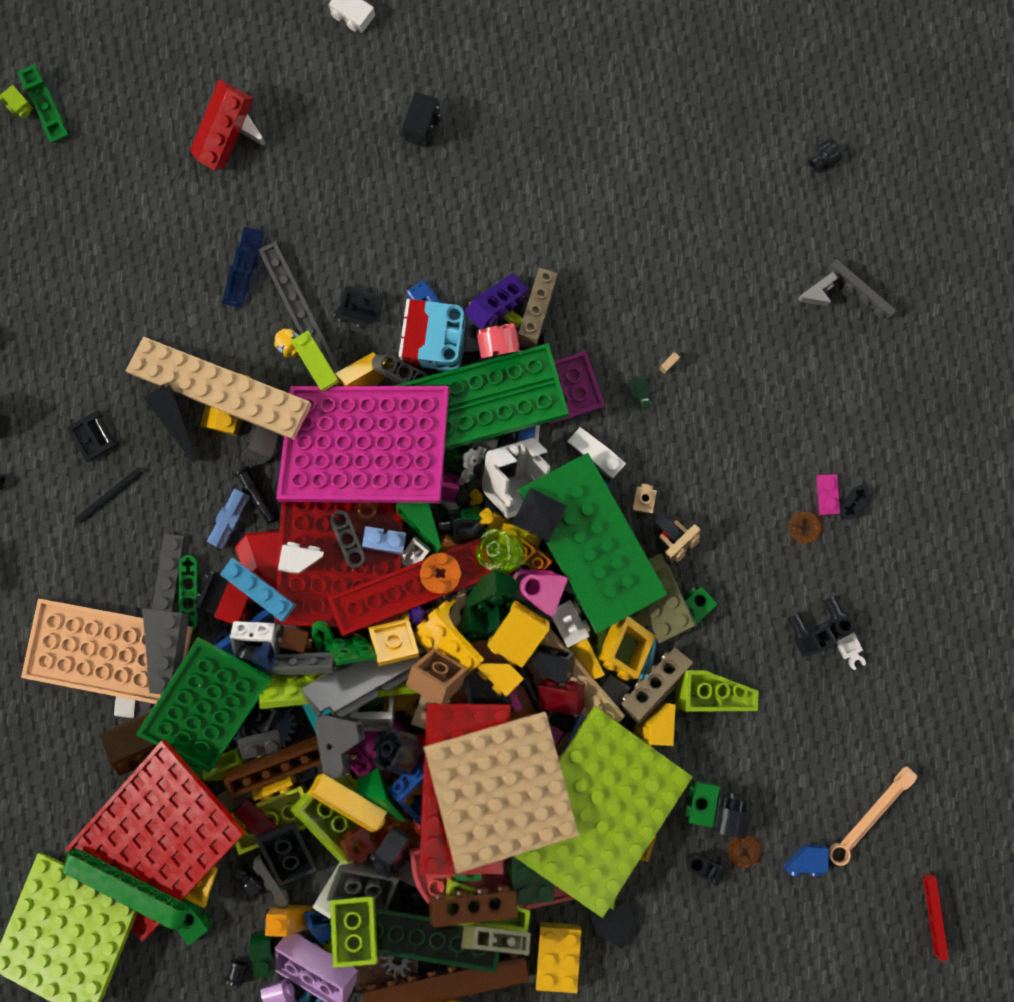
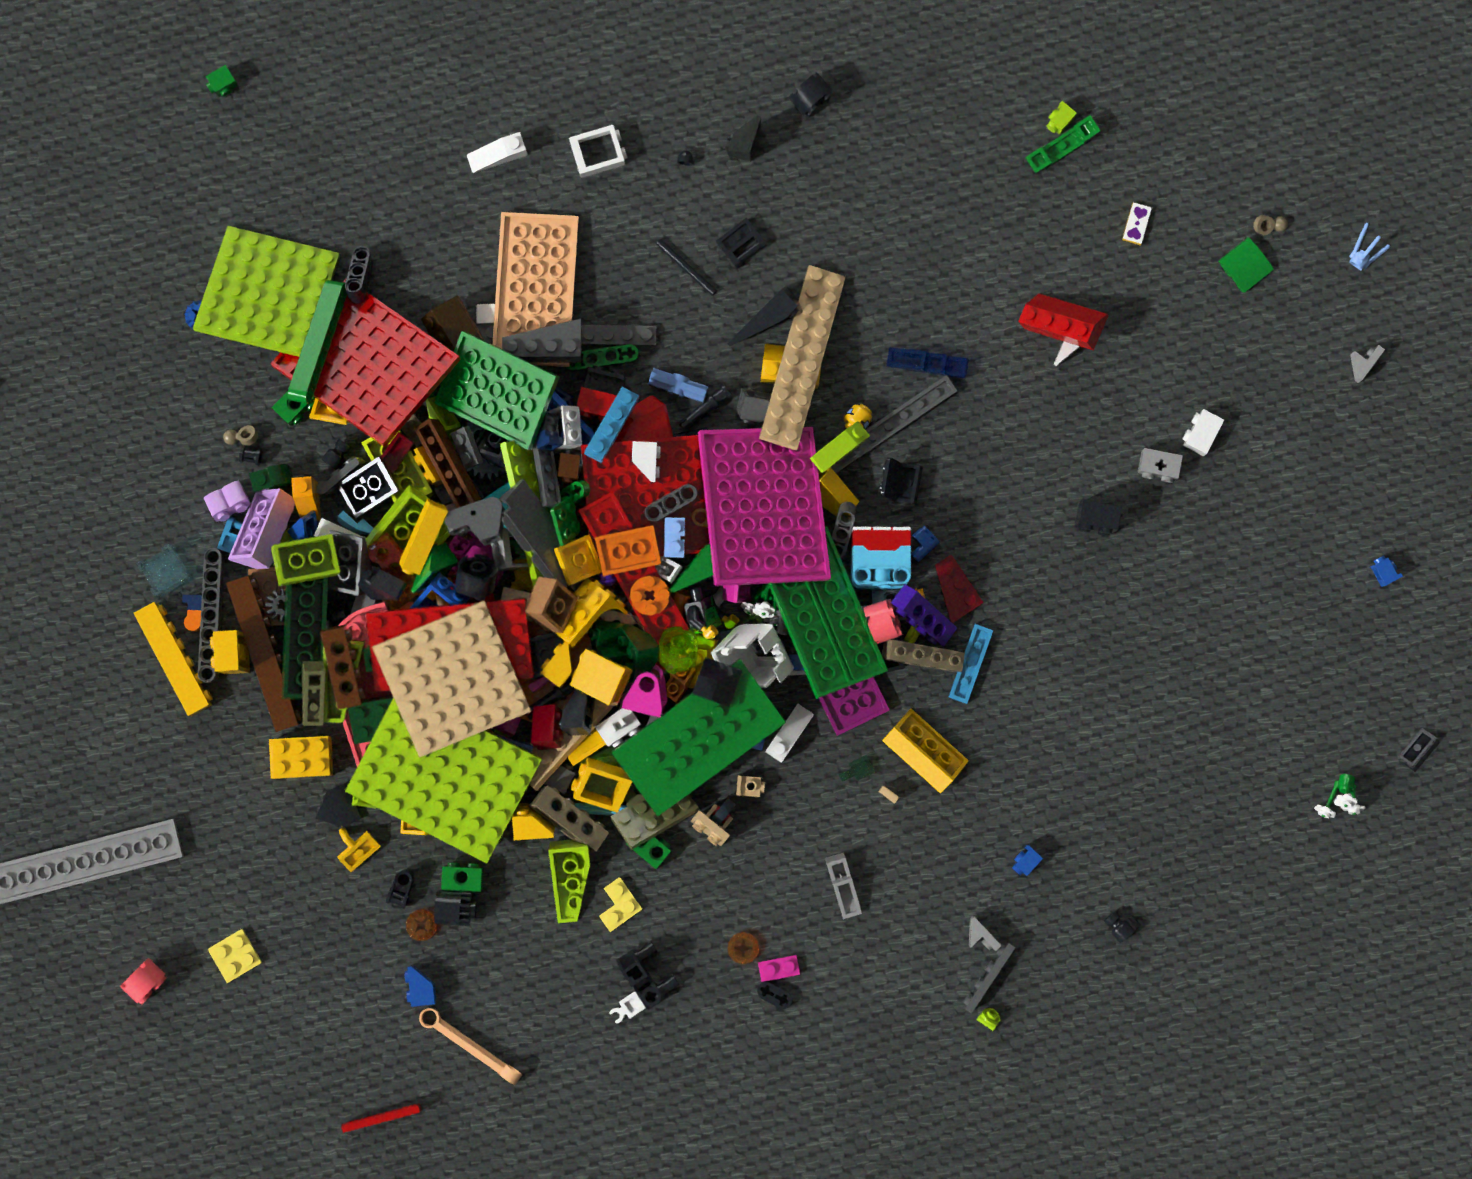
camera: 80 degrees right, 0 degrees up
(62, 835) = (359, 275): none -> black beam
(134, 45) = (1136, 223): none -> white tile
(214, 975) = (246, 435): none -> dark tan plate
(328, 865) = (360, 528): none -> medium azure slope
(377, 45) = (1170, 461): none -> light grey brick
(391, 589) = (628, 550): none -> orange plate
(474, 269) = (956, 588): none -> dark red wing
(537, 258) = (972, 662): none -> dark azure plate
(631, 321) = (925, 750): none -> yellow slope
(661, 909) = (357, 850): none -> yellow plate
(749, 641) = (624, 907): none -> light yellow plate
(751, 237) = (1026, 861): none -> blue brick
(753, 419) = (843, 885): none -> light grey slope
(900, 295) = (989, 1018): none -> lime plate

